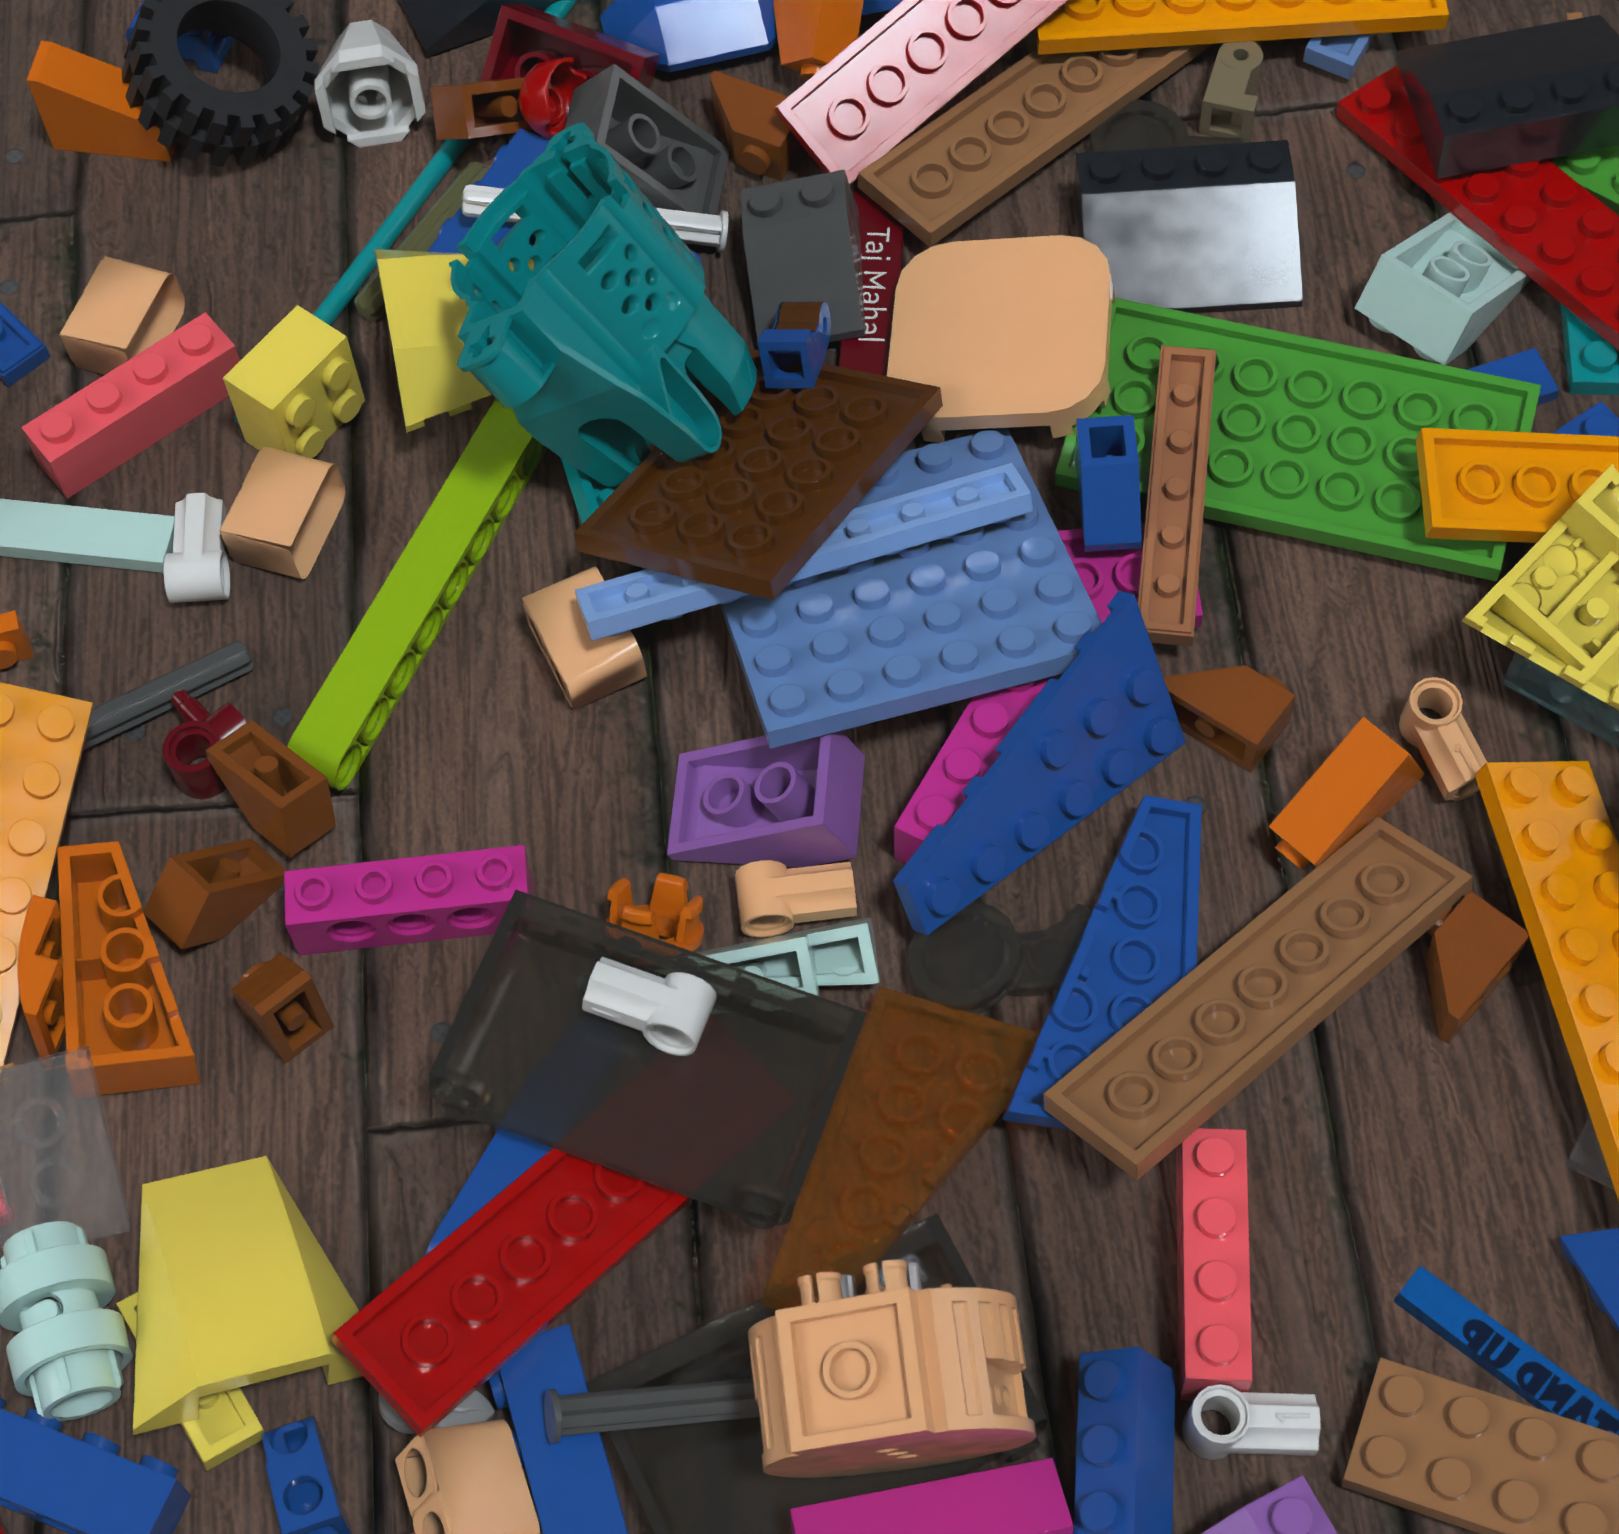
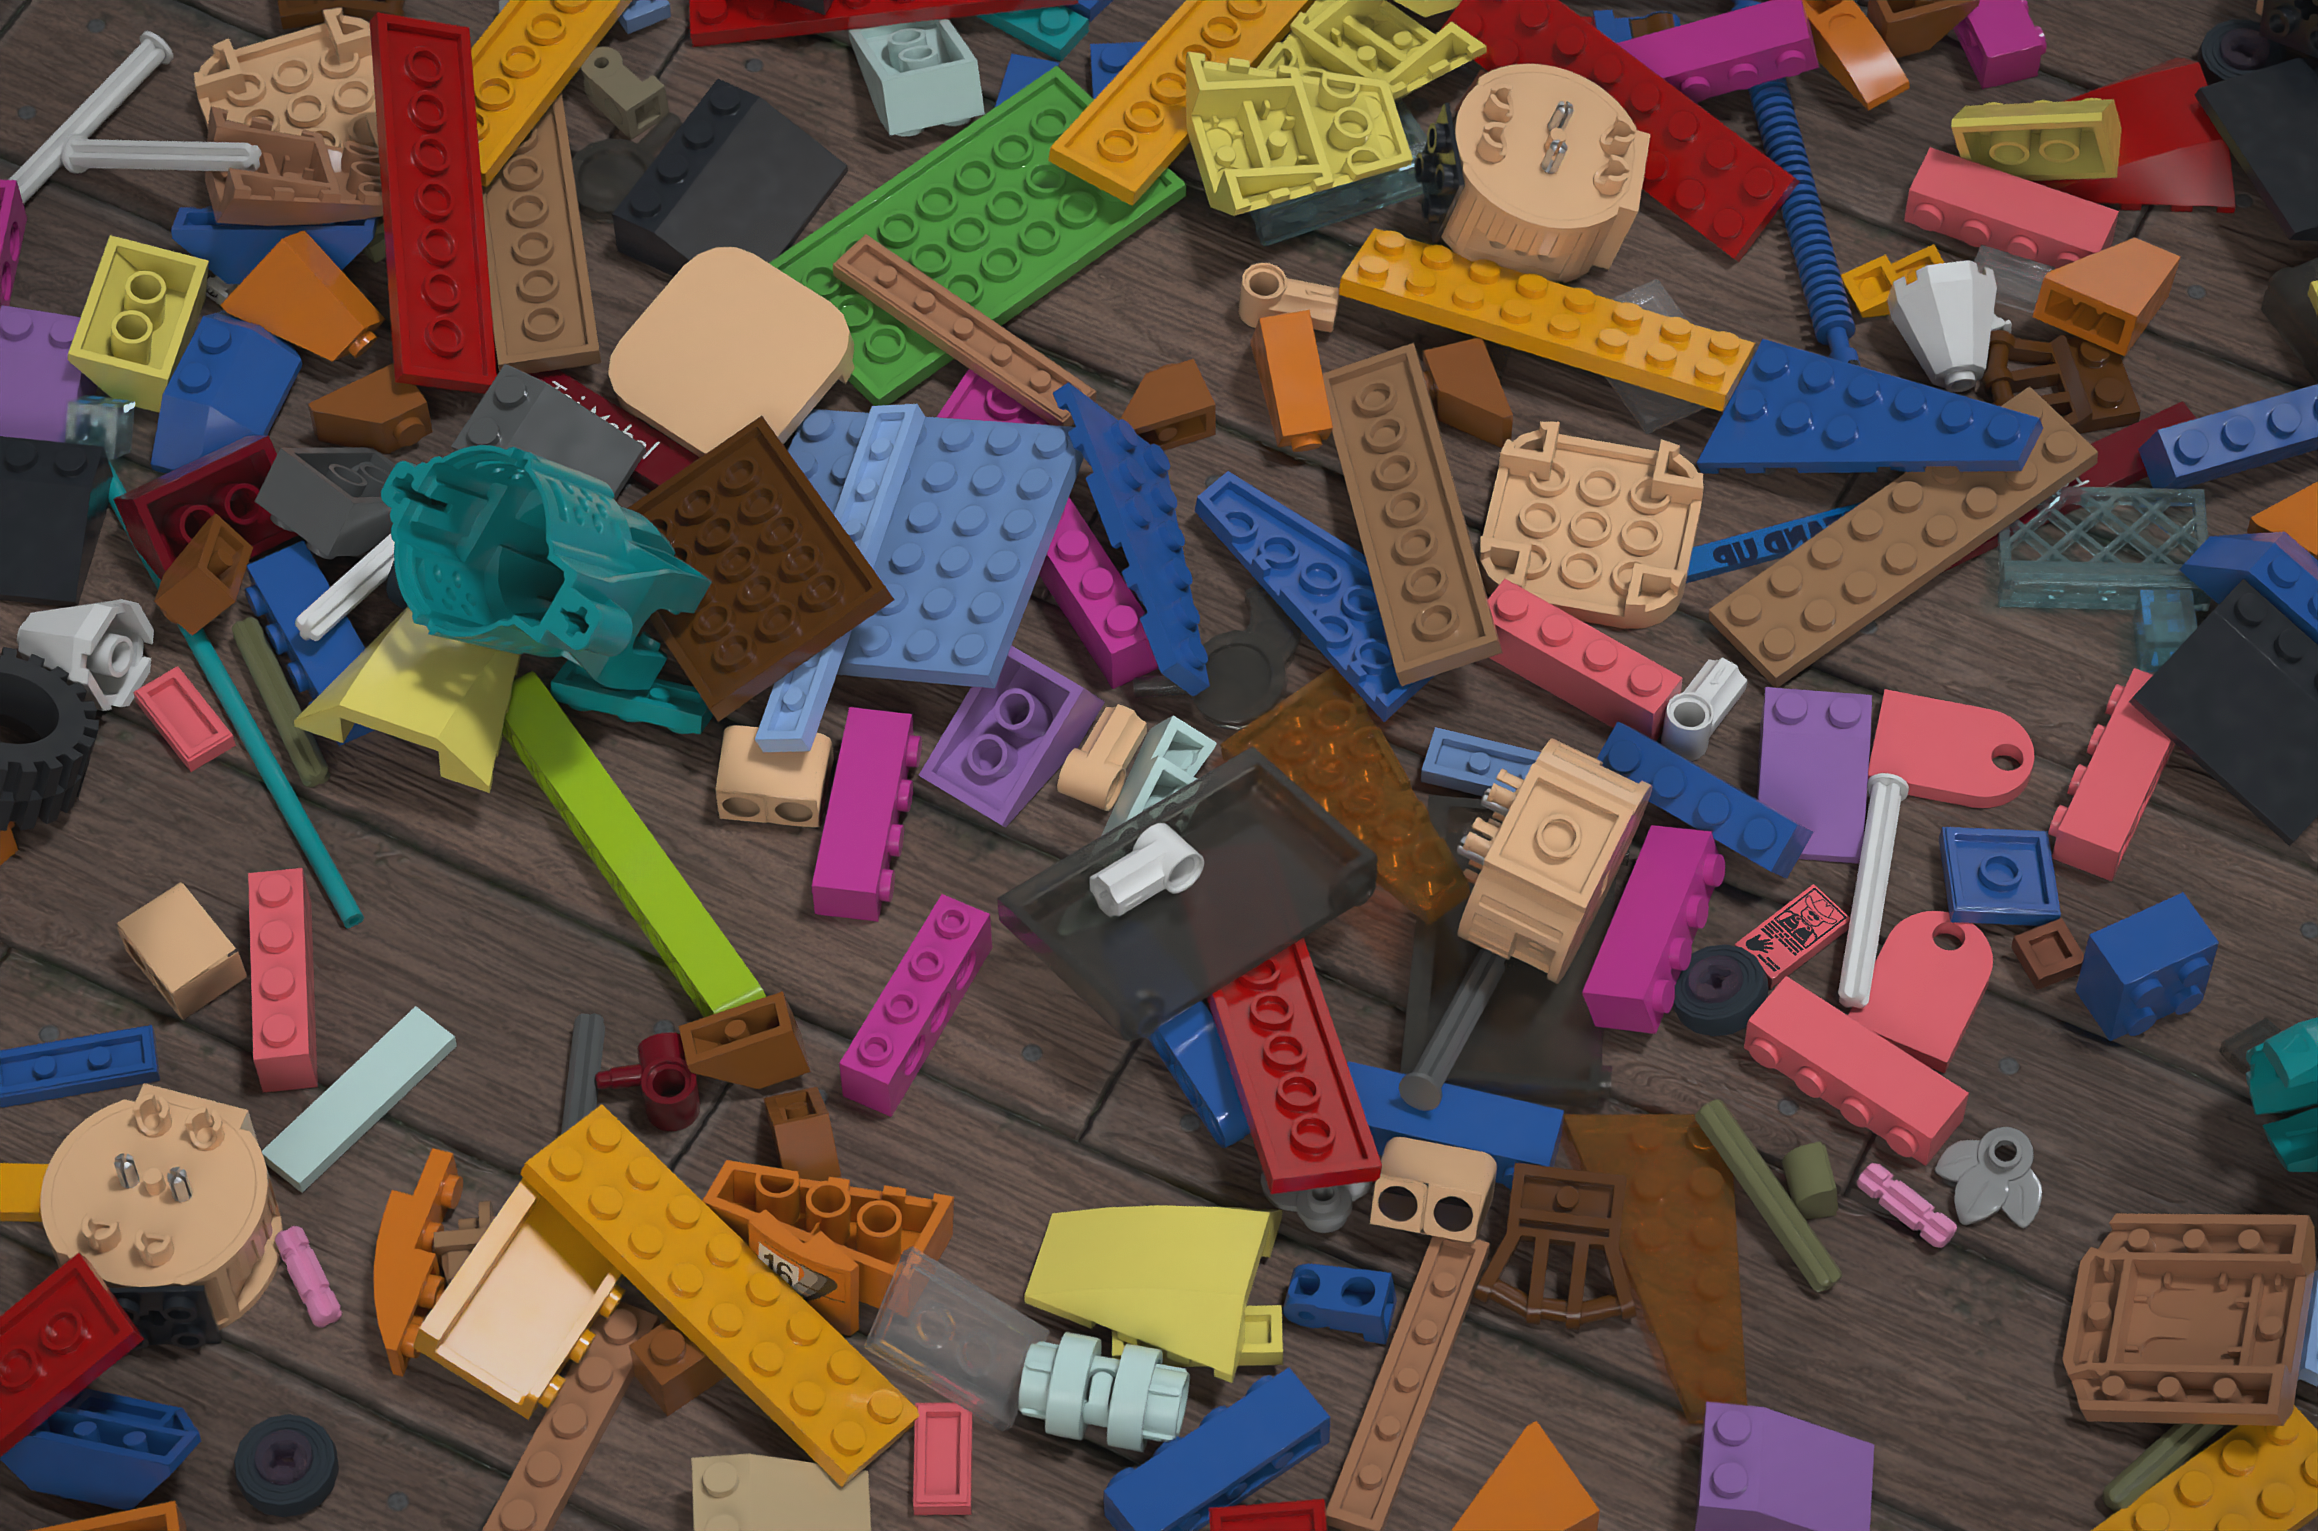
camera: 60 degrees left, 5 degrees down
(199, 561) = (477, 1011): white piece -> none
(283, 512) = (481, 924): light nougat piece -> none
(283, 1005) = (940, 1128): dark orange slope -> none
(295, 386) = (382, 848): light yellow brick -> none
(365, 189) = (184, 719): none -> coral tile
(548, 95) = (247, 523): red hair -> none
(596, 733) = (865, 813): none -> dark pink brick
(665, 916) = (1050, 845): orange piece -> none
(797, 337) = (636, 483): blue leg -> none
(1036, 1272) = (1472, 762): none -> medium blue plate
(1108, 483) = (931, 361): blue slope -> none
(1400, 1181) = (1593, 526): none -> light nougat tile

